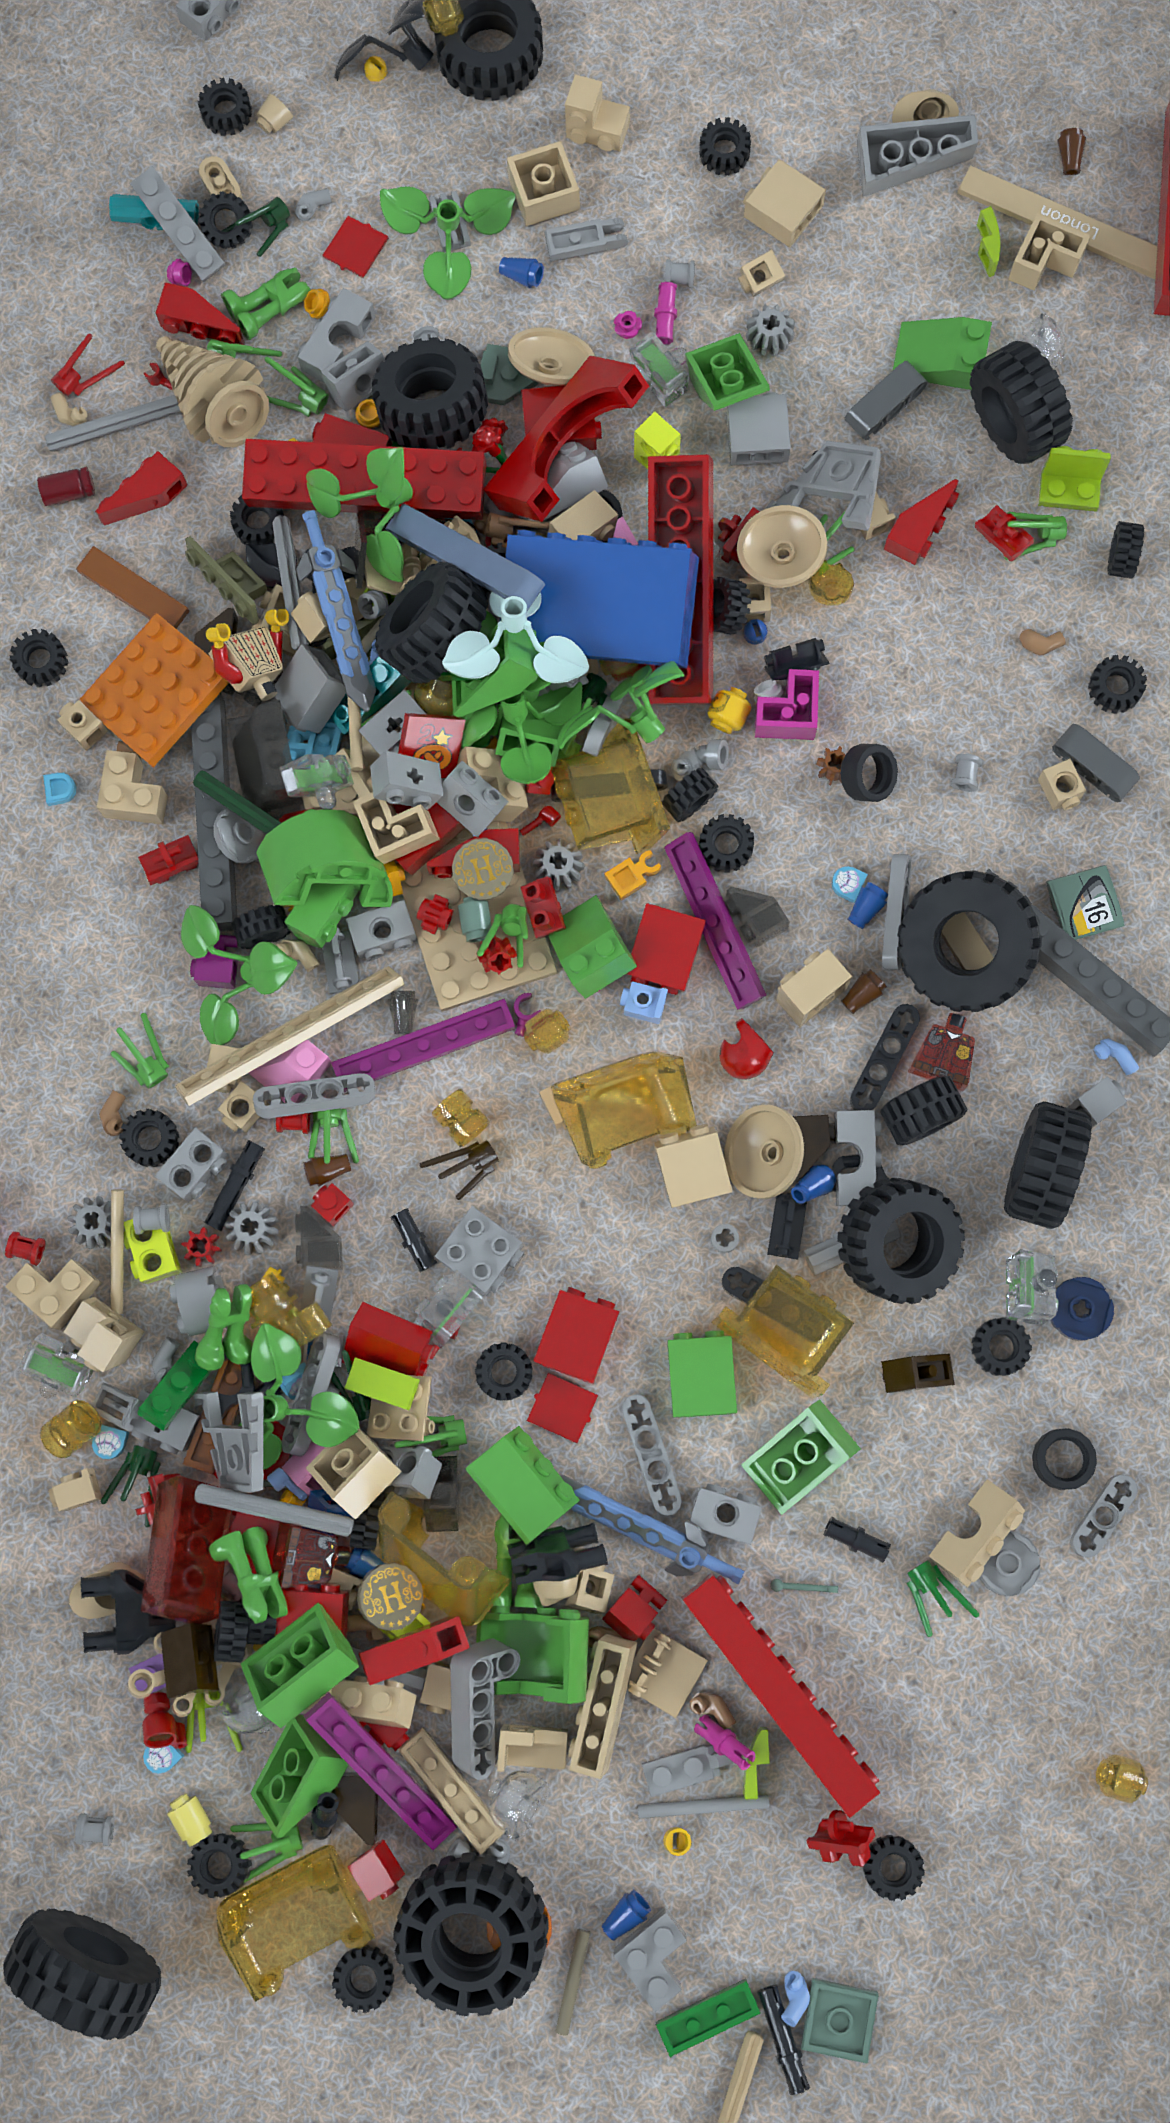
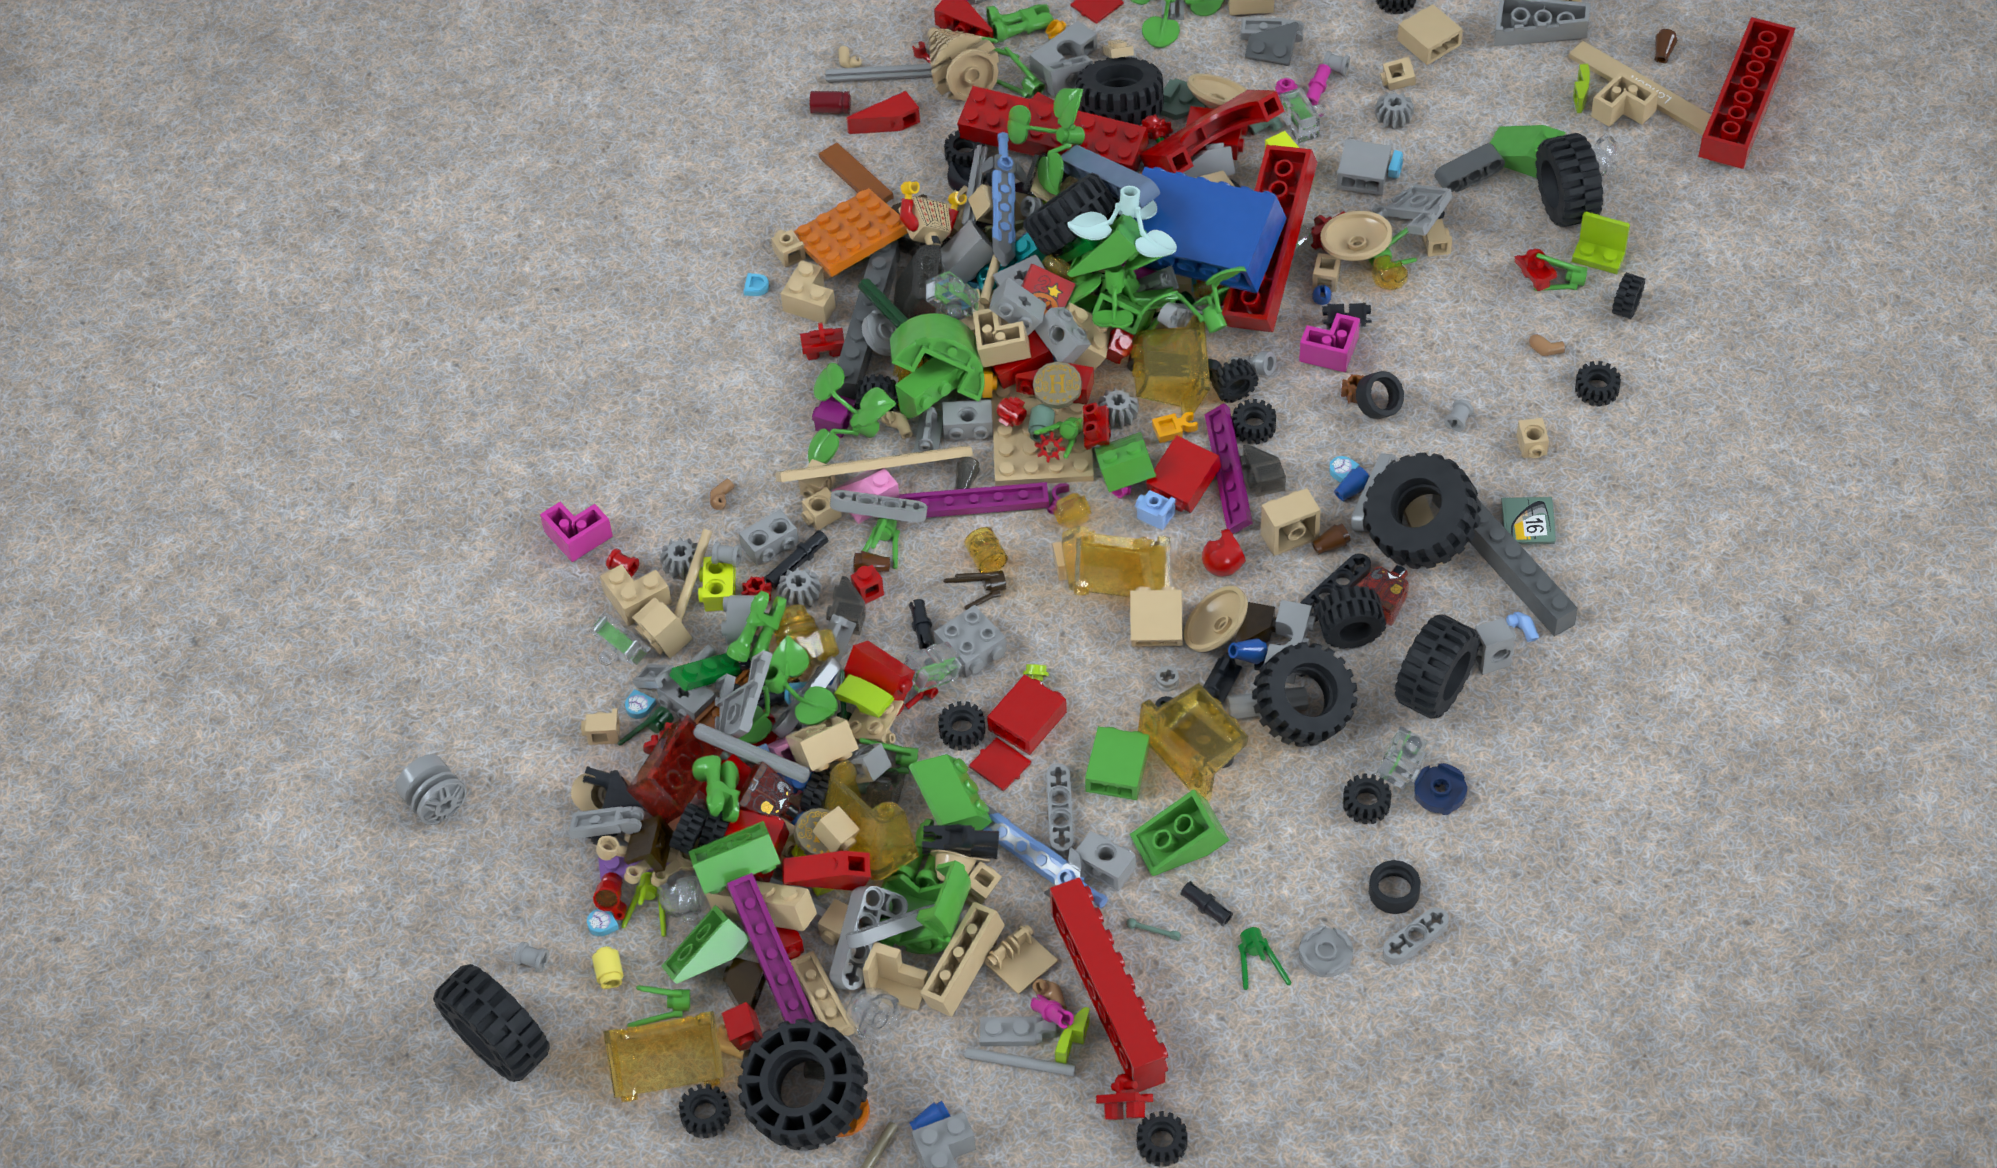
camera: 15 degrees right, 25 degrees down
(36, 641) = (771, 191): black tyre -> none
(67, 378) = (855, 38): red plant -> none
(70, 1429) = (612, 682): clear yellow wheel -> none
(124, 1645) = (606, 822): none -> light grey hinge
(134, 1127) = (739, 503): black tyre -> none
(150, 1071) = (759, 472): bright green plant -> none
(199, 1865) = (623, 1015): black tyre -> none
(231, 577) = (932, 179): olive bracket -> none
(294, 1122) = (856, 526): red bush -> none
(324, 1815) = (715, 982): black pin -> none
(407, 324) = (1117, 48): none -> tan plate
(411, 1597) = (836, 830): none -> tan brick
(480, 1729) = (884, 929): none -> light grey beam
(522, 270) = (1217, 39): blue cone -> none
(547, 815) = (1120, 375): red hand -> none
(569, 1273) = (1036, 671): none -> lime plate
(595, 264) = (1273, 44): none -> dark grey wing
(632, 1614) = (1011, 906): red brick -> none
(683, 1841) = (996, 1077): yellow hinge -> none
(725, 372) = (1348, 122): bright green slope -> none
(729, 605) = (1303, 267): black tyre -> none
(729, 710) = (1283, 337): yellow head -> none
(795, 415) = (1395, 165): none -> medium azure tile
(916, 525) = (1469, 251): red slope -> none
(917, 1373) = (1292, 799): dark brown slope -> none
(966, 1557) = (1291, 929): tan arch -> none
(1097, 762) = (1566, 430): dark grey beam -> none
(1121, 1778) = (1372, 1120): clear yellow head -> none

